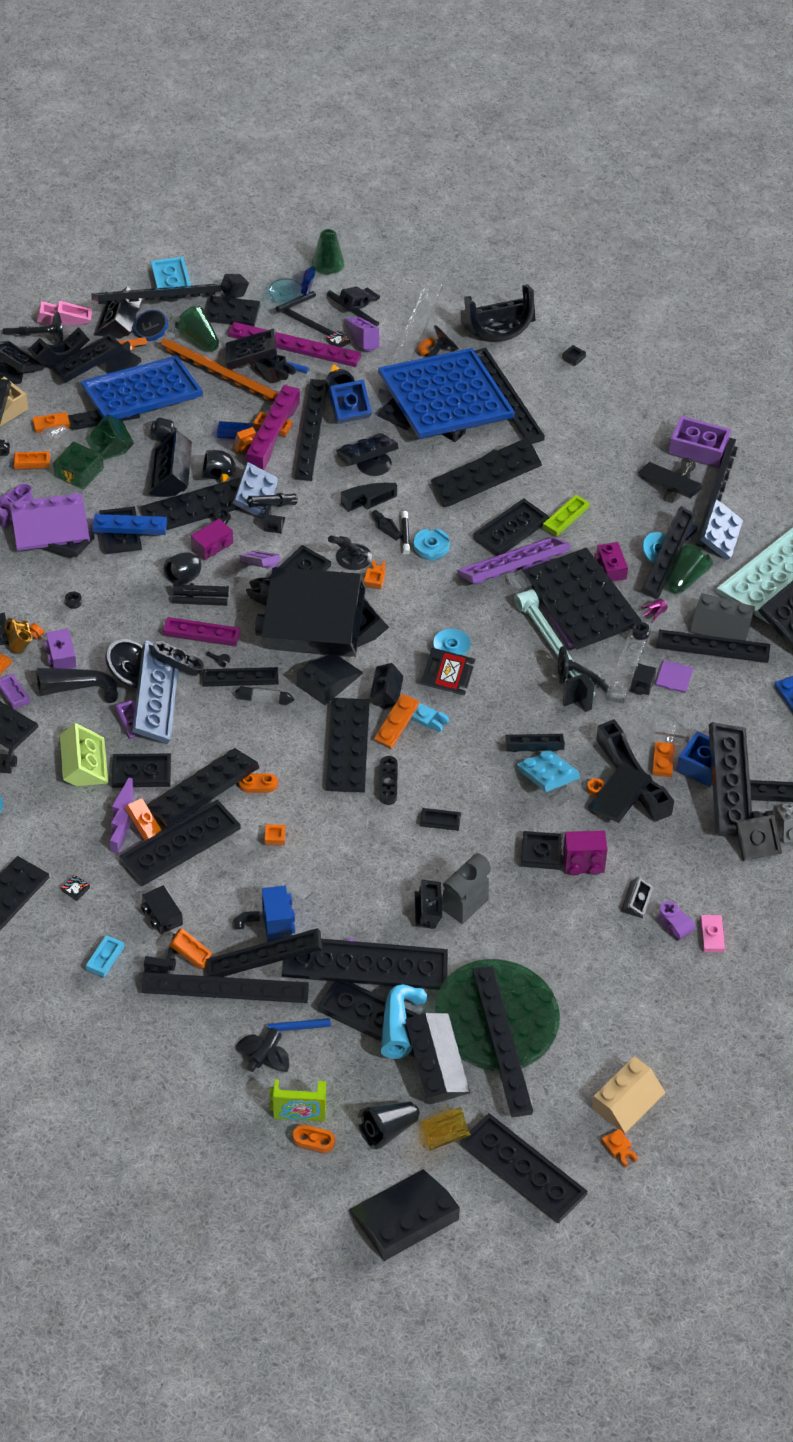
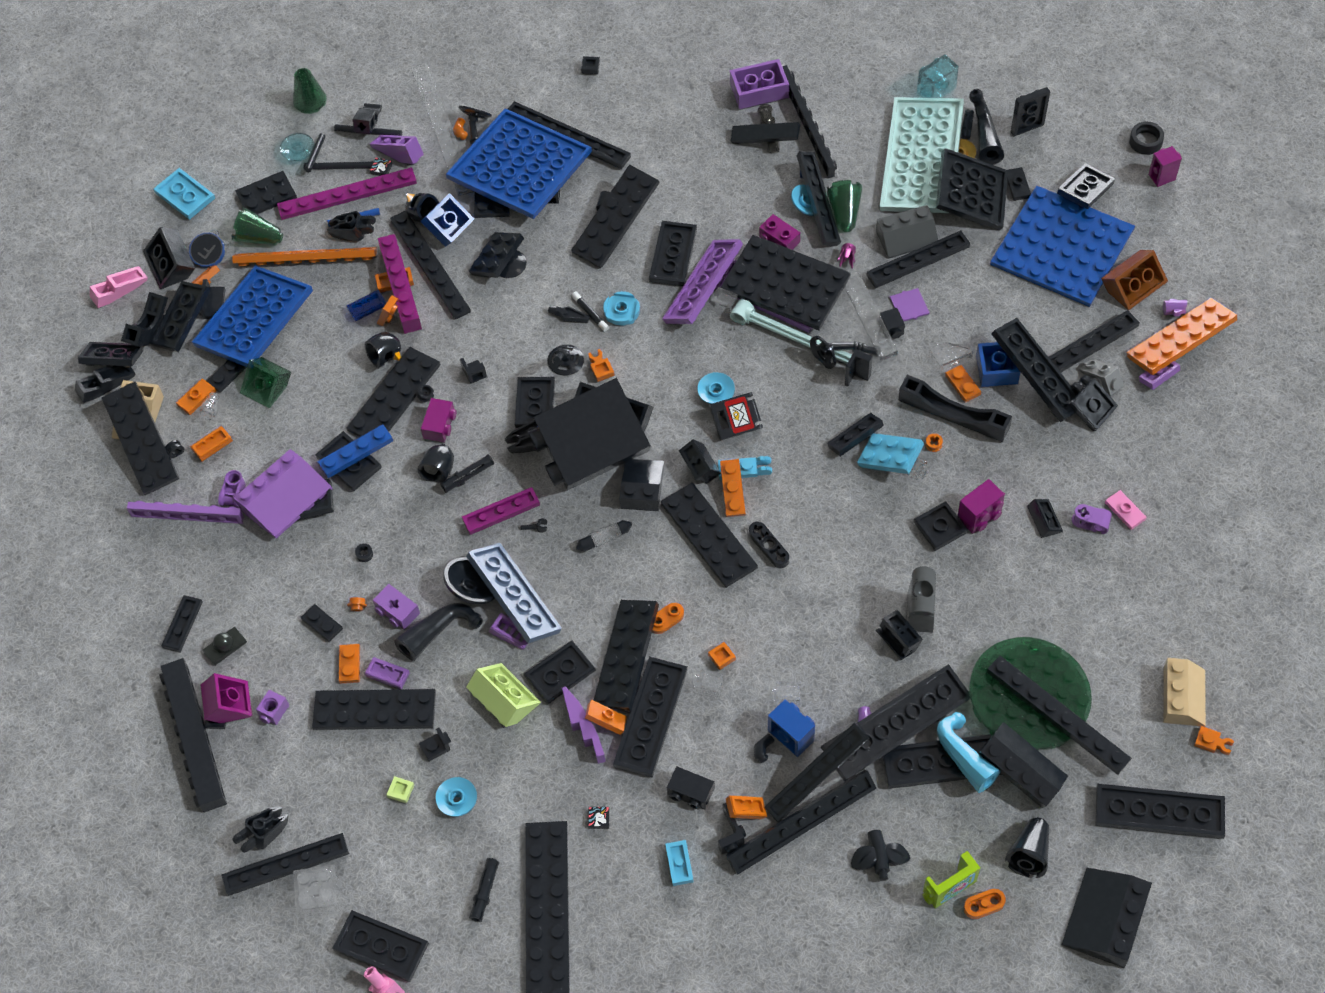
camera: 30 degrees left, 10 degrees up
(18, 634) = (348, 617): pearl gold piece -> none
(55, 328) = (124, 306): black dish -> none
(78, 465) = (259, 423): clear green brick -> none
(149, 294) = (187, 221): black plate -> none
(162, 428) = (304, 343): black head -> none
(170, 465) = (341, 374): black slope -> none
(184, 656) = (492, 553): black beam -> none
(199, 600) = (474, 482): black bar -> none
(234, 285) = (249, 169): black brick -> none
(240, 676) = (567, 531): black tile -> none
(251, 349) = (319, 221): black plate -> none
(254, 483) = (435, 351): plate -> none
(260, 559) = (507, 414): medium lavender plate -> none
(273, 500) = (462, 347): black pin -> none
(297, 1025) = (885, 812): blue bar -> none
(308, 280) = (311, 126): clear blue slope -> none
(368, 495) = (532, 297): black slope -> none
(440, 819) = (838, 551): black tile -> none
(445, 1128) = (1077, 820): clear yellow plate -> none
(479, 319) = (485, 76): black piece -> none
(566, 515) = (707, 215): lime plate -> none
(619, 793) = (961, 436): black tile -> none
(640, 631) = (857, 277): black bush -> none
(721, 529) = (841, 152): plate -> none

